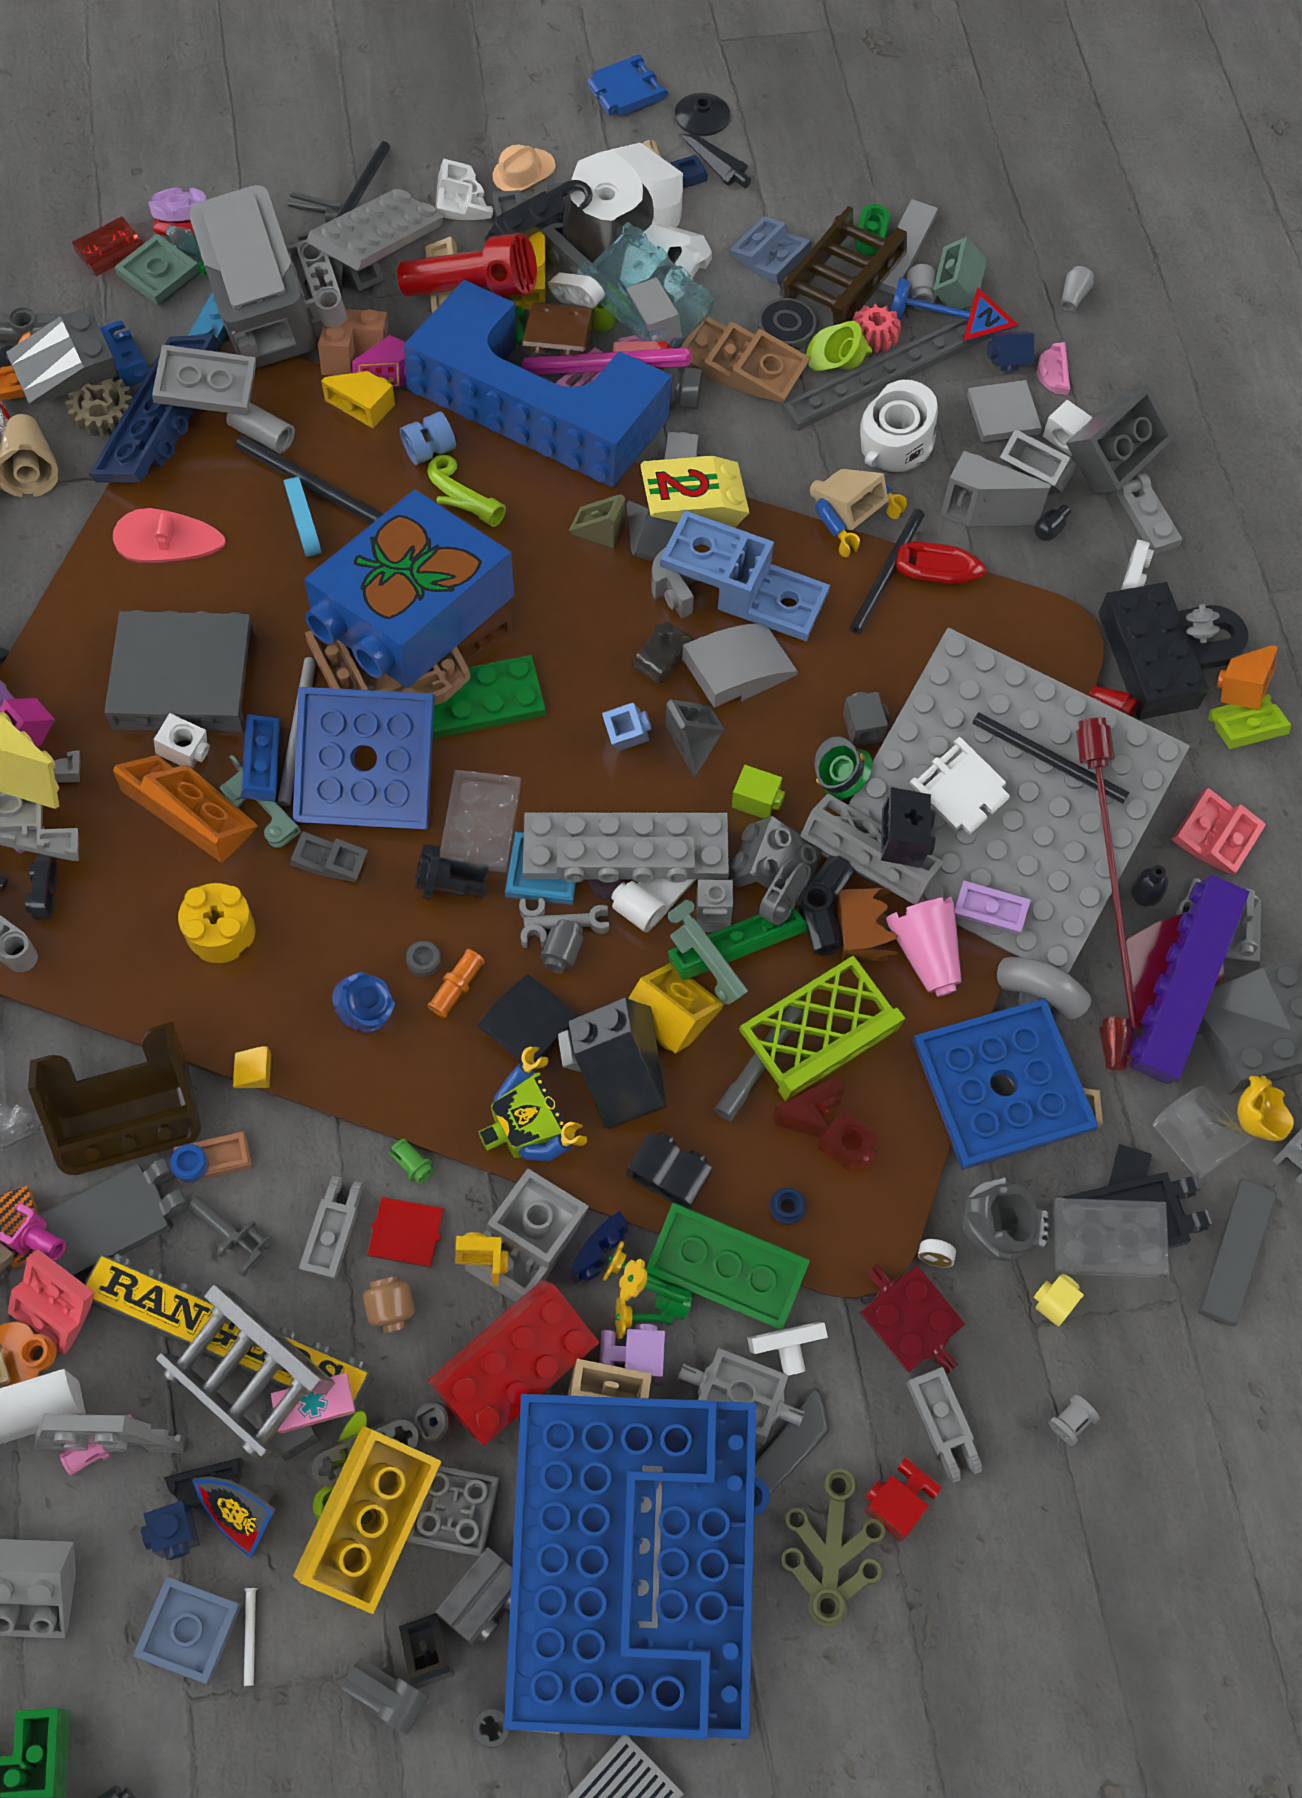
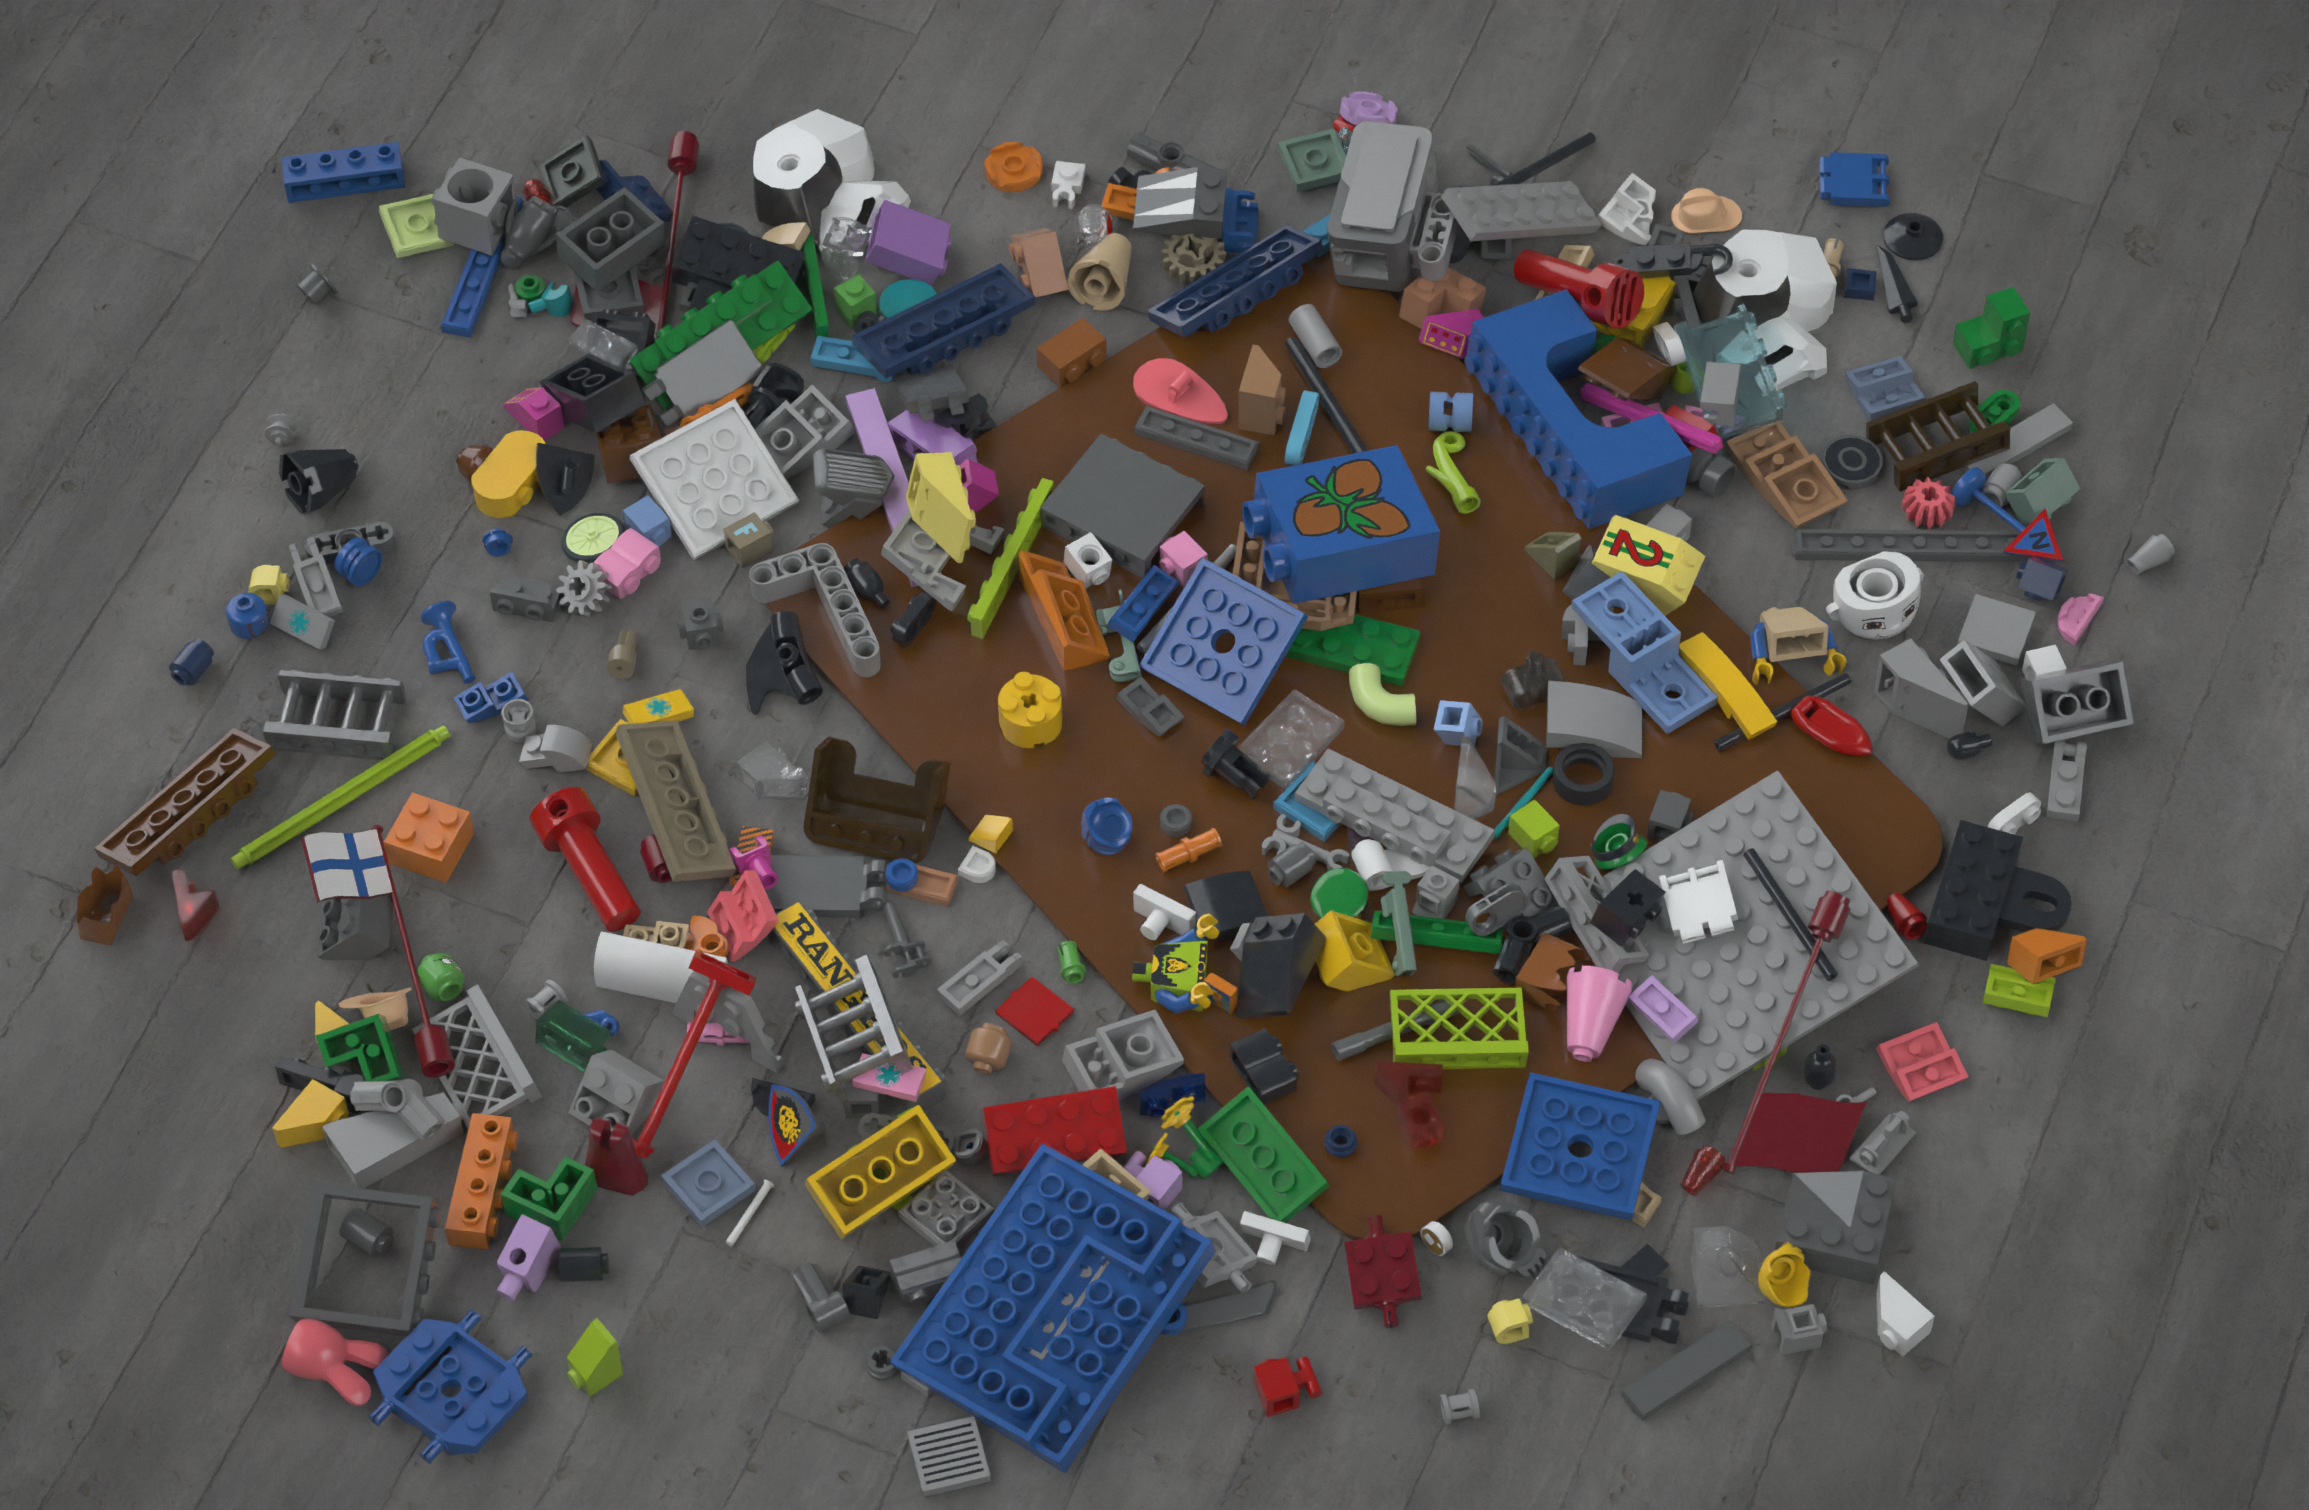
camera: 35 degrees right, 10 degrees down
(40, 547) = (1071, 353): none -> dark orange brick
(74, 1674) = (615, 1158): none -> dark red piece
(77, 1415) = (720, 977): none -> red tile
(104, 787) = (1007, 566): none -> lime plate
(107, 245) = (1285, 120): clear red plate -> none
(170, 1531) = (736, 1111): dark blue brick -> none
(204, 379) = (1286, 275): light grey plate -> none
(208, 572) = (1196, 438): none -> dark grey tile
(250, 502) = (1261, 395): none -> medium nougat slope
(257, 1108) = (977, 866): none -> white tile
(270, 694) = (1180, 557): none -> bright pink brick
(360, 395) = (1418, 350): yellow slope -> none
(473, 1064) = (1161, 913): none -> white tile
(478, 1249) = (1078, 1042): yellow bracket -> none
(538, 743) = (1378, 703): none -> yellowish green cylinder
(581, 1113) = (1224, 993): none -> orange tile
(628, 953) = (1340, 892): none -> green piece
(678, 778) = (1474, 783): none -> clear slope
(722, 806) = (1524, 800): none -> teal axle
(768, 695) = (1586, 754): none -> black tyre
(829, 159) = (1996, 332): none -> green brick
(830, 567) = (1733, 690): none -> yellow slope
(831, 1554) = (1209, 1393): olive plant -> none
(838, 347) = (1879, 504): lime piece -> none
(944, 1421) = (1357, 1351): light grey hinge -> none
(1188, 979) = (1793, 1148): dark purple brick -> none
(1202, 623) = (2024, 883): light grey wheel -> none

